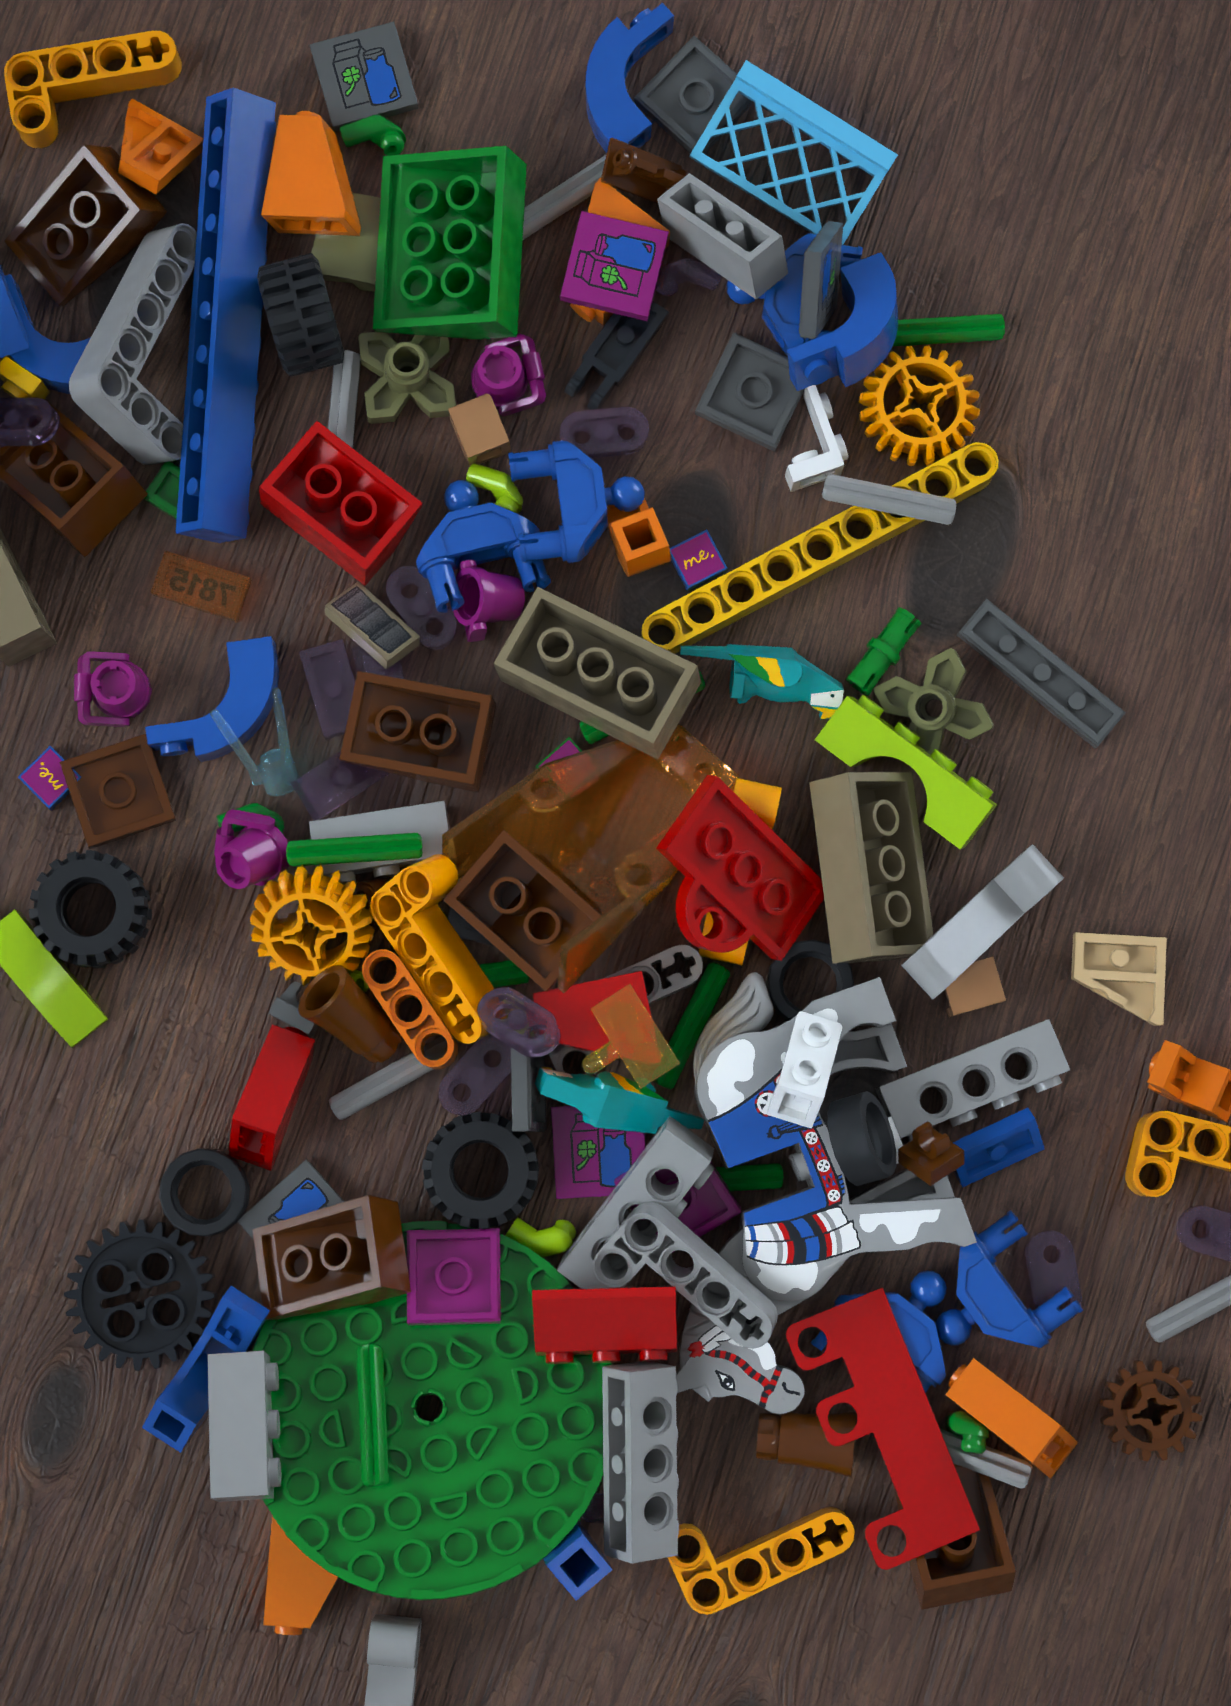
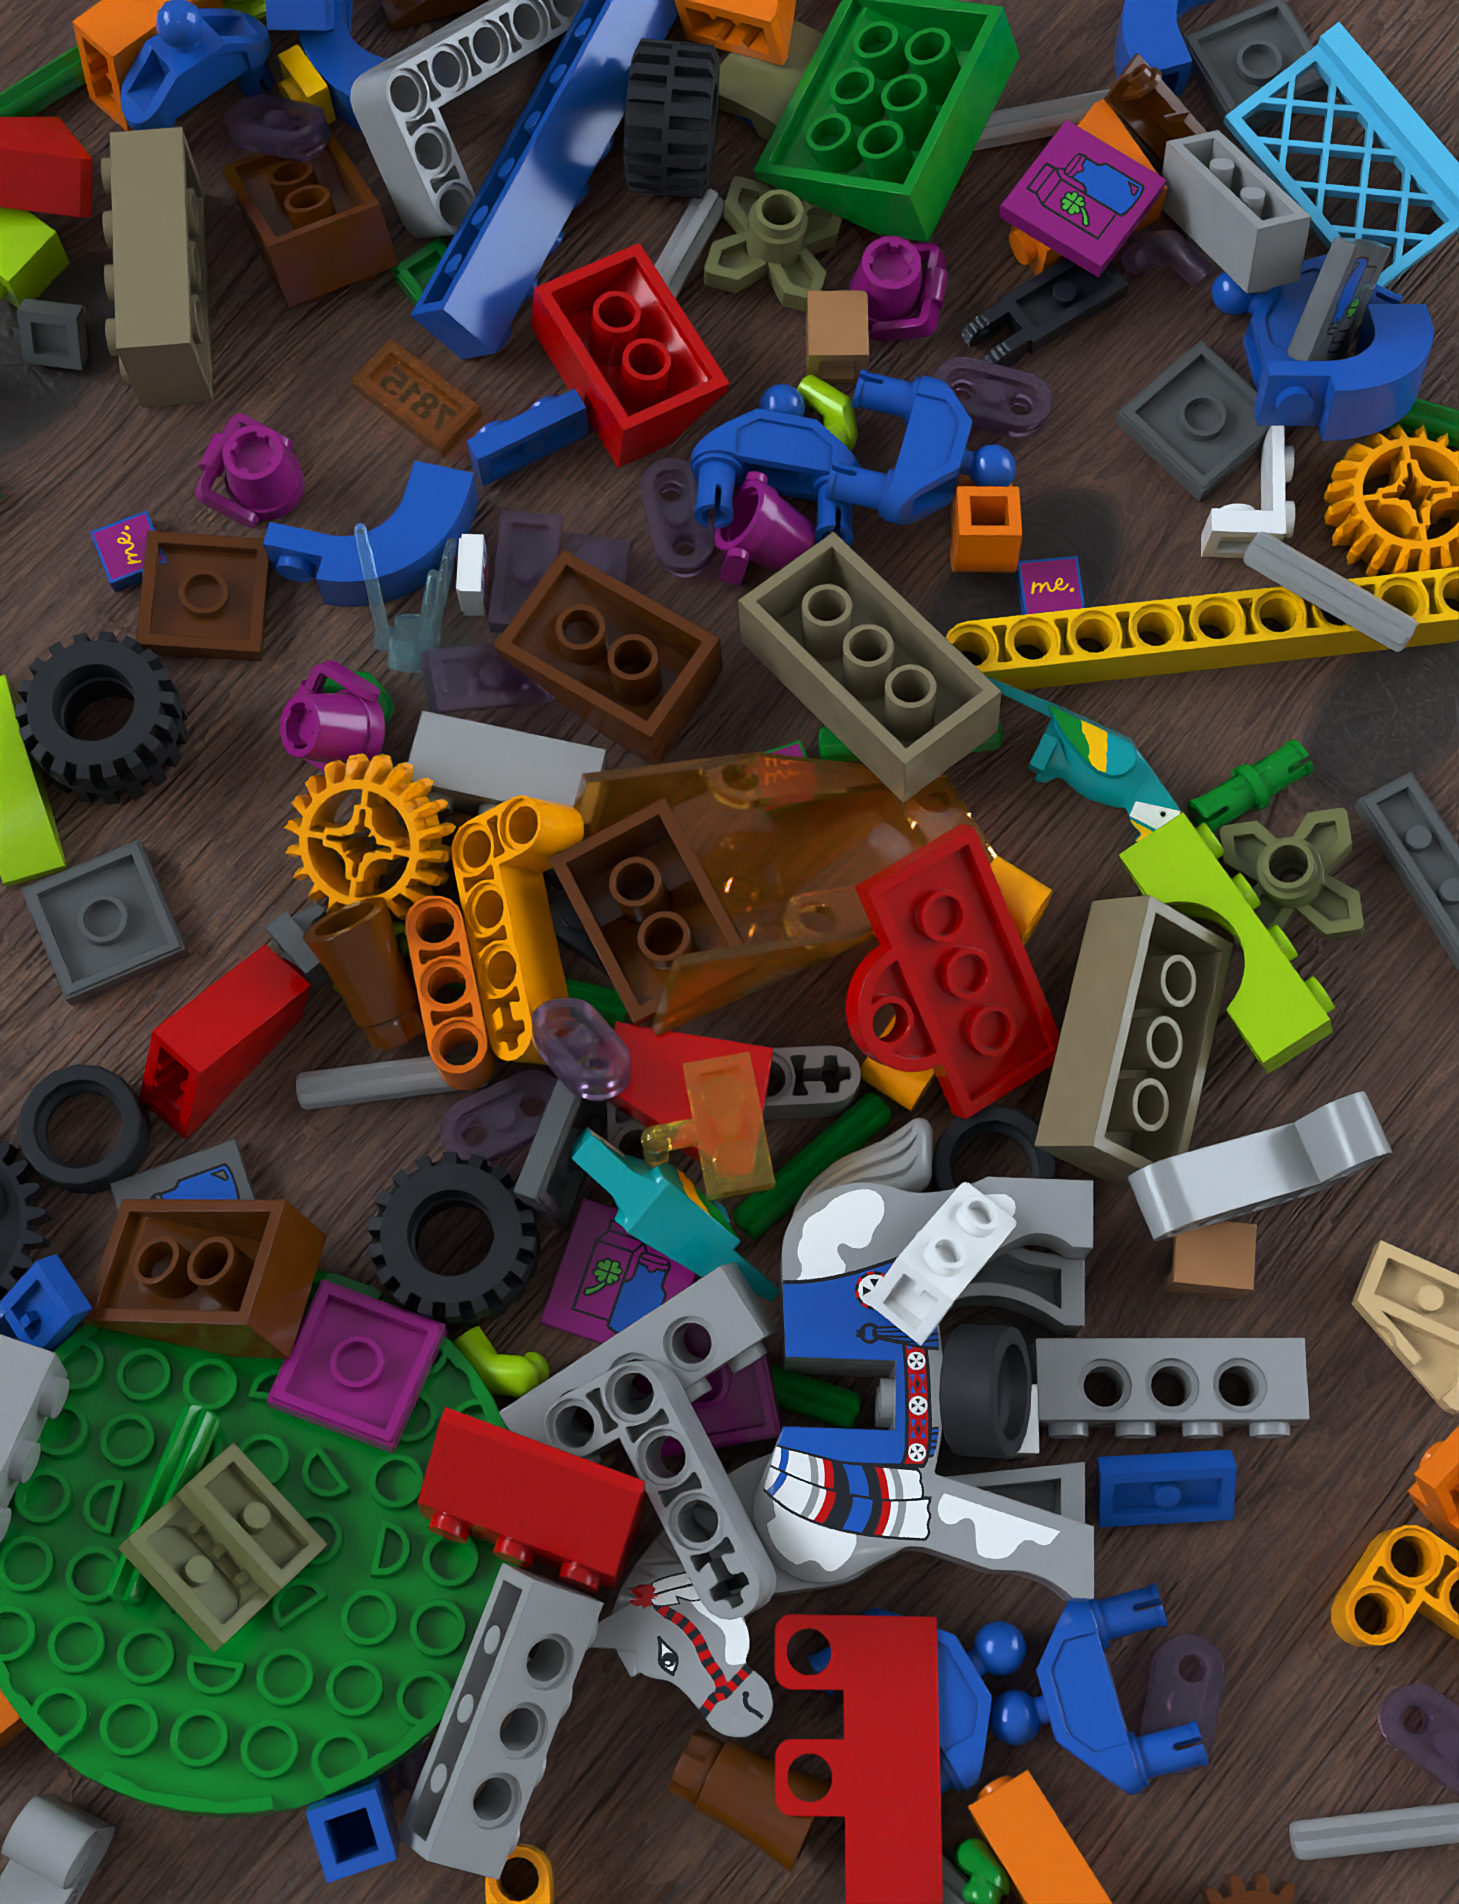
camera: 25 degrees right, 10 degrees down
(152, 1046) = (104, 922): none -> dark grey tile
(298, 706) = (472, 574): none -> white tile
(304, 575) = (540, 431): none -> blue plate
(354, 849) = (463, 761): green axle -> none
(372, 625) = (606, 513): tile -> none
(423, 1426) = (222, 1547): none -> olive slope
(930, 1154) = (1073, 1454): reddish brown tile -> none

